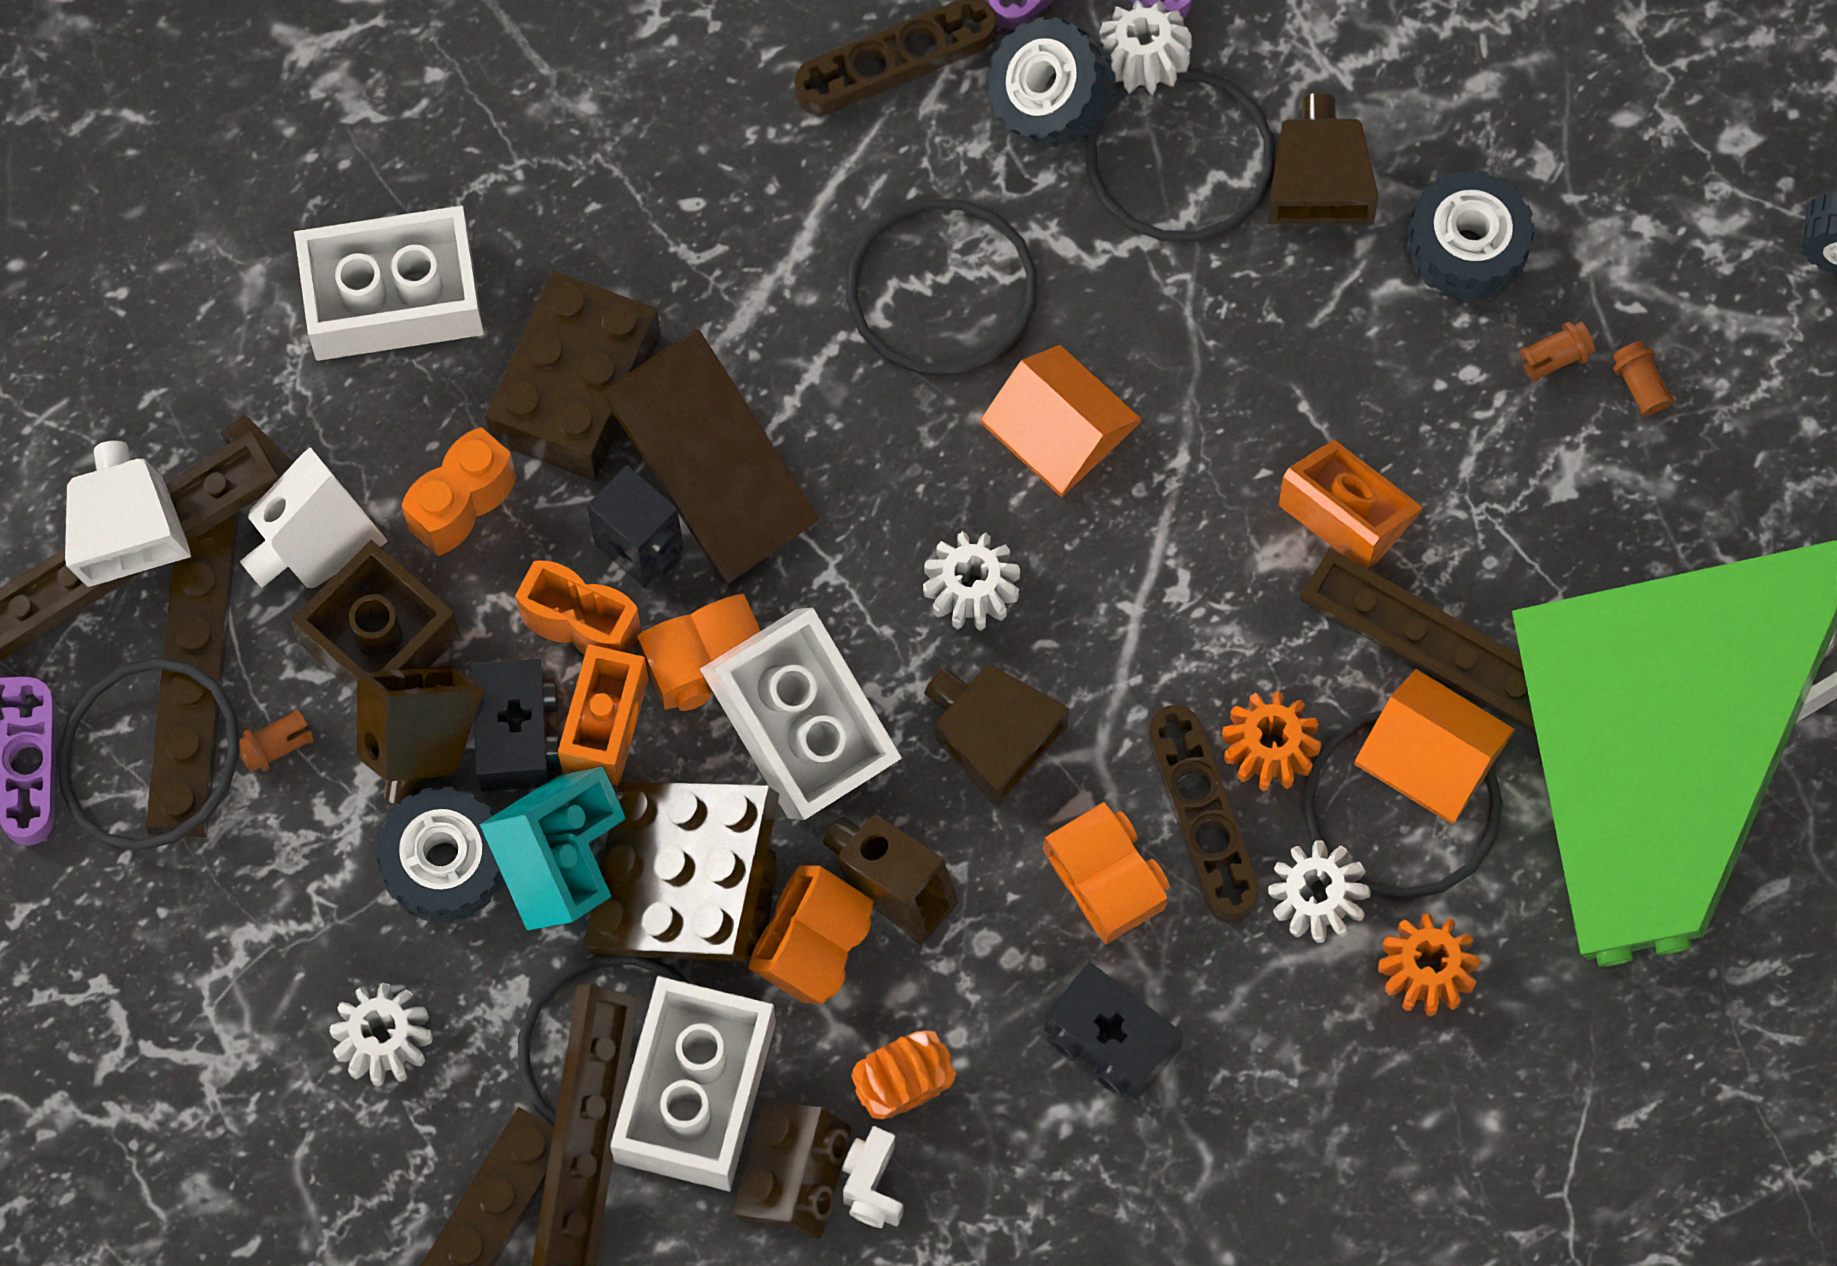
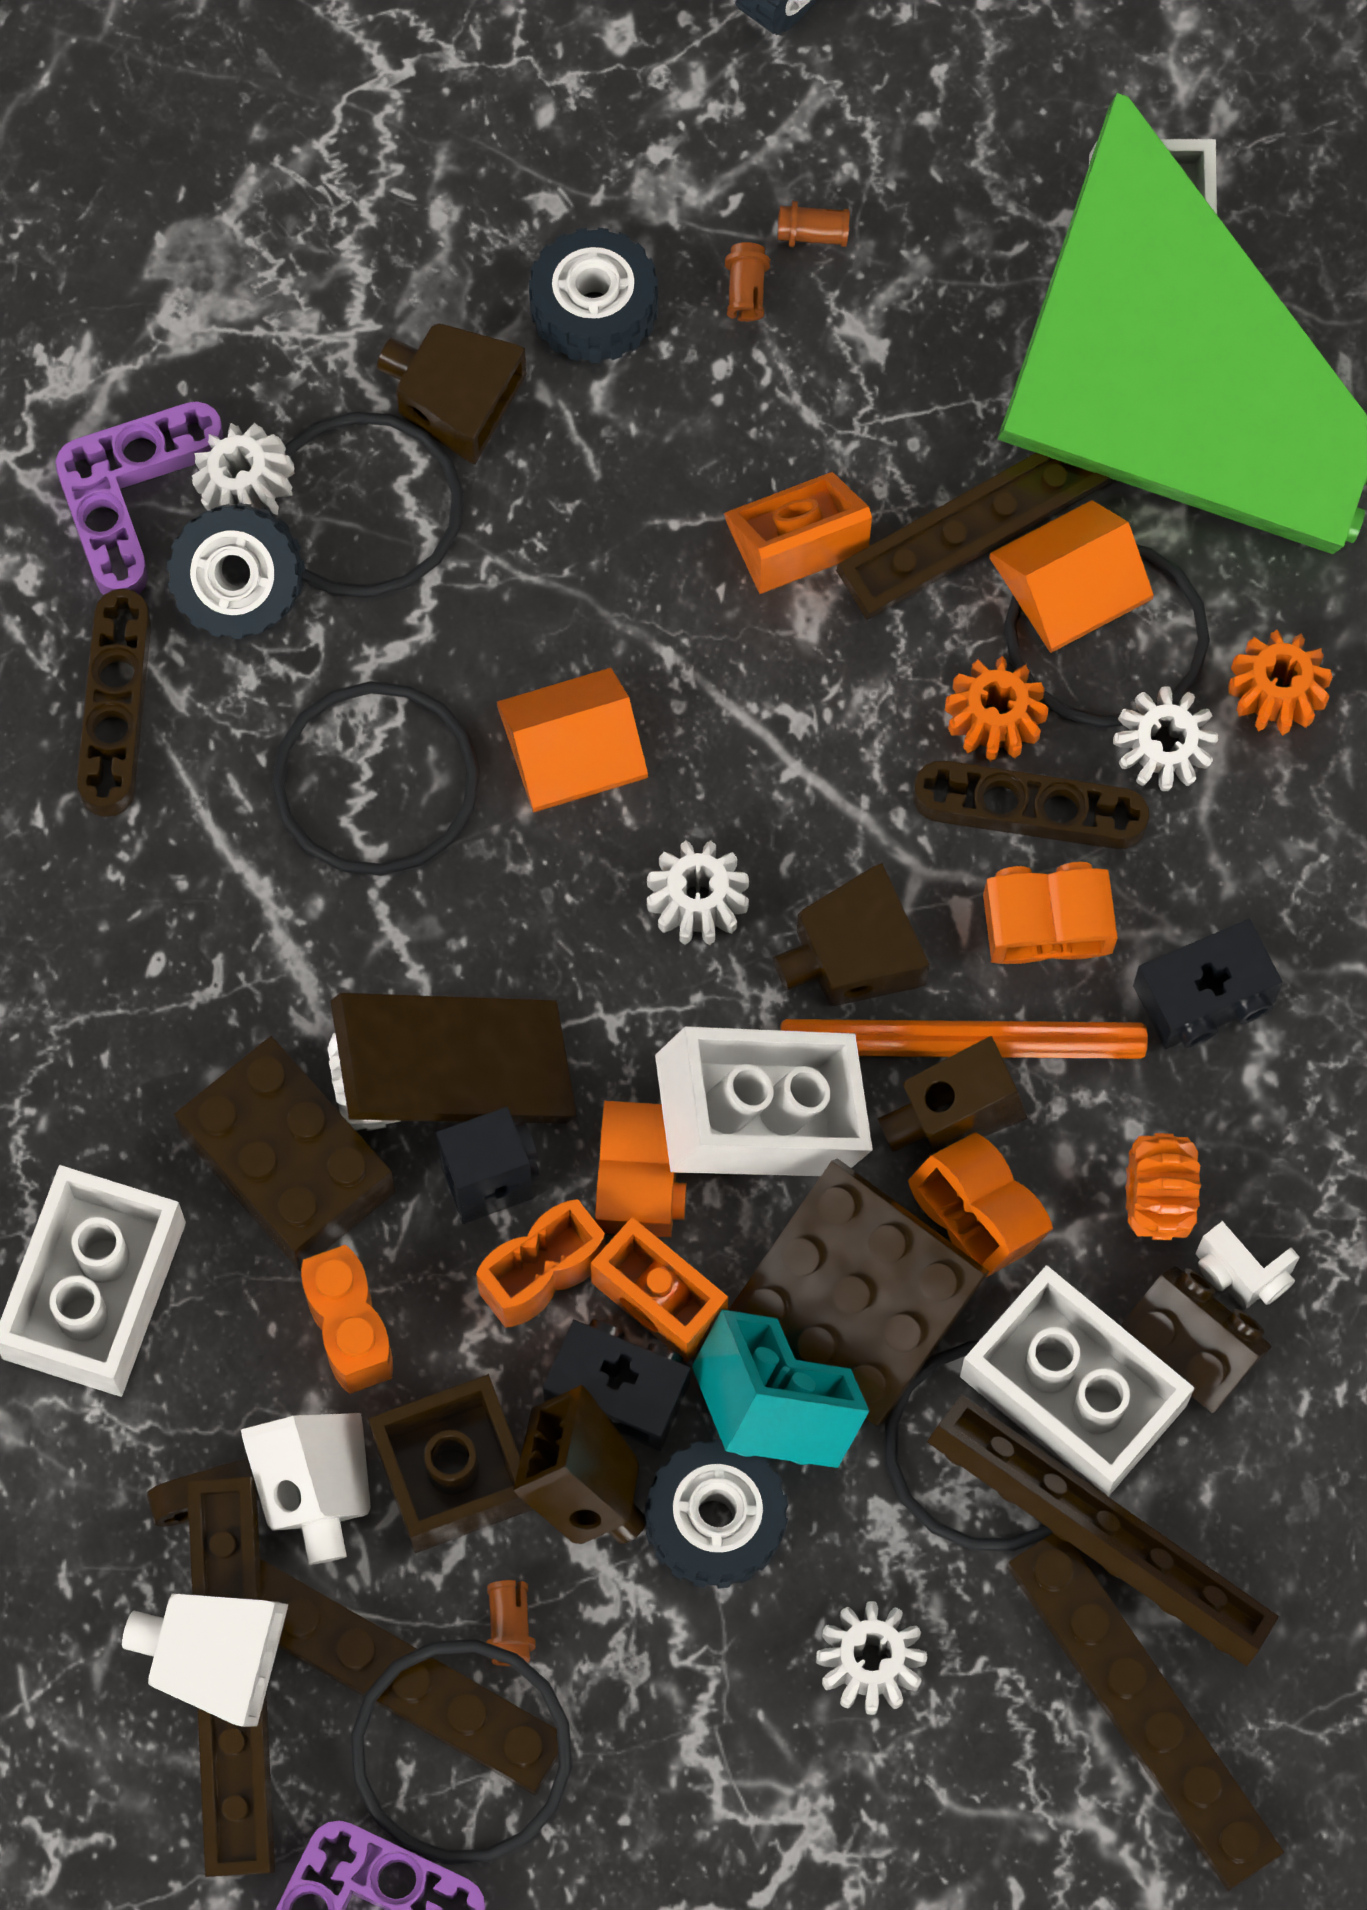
camera: 65 degrees left, 0 degrees up
(964, 864) = (1012, 1038): none -> orange axle

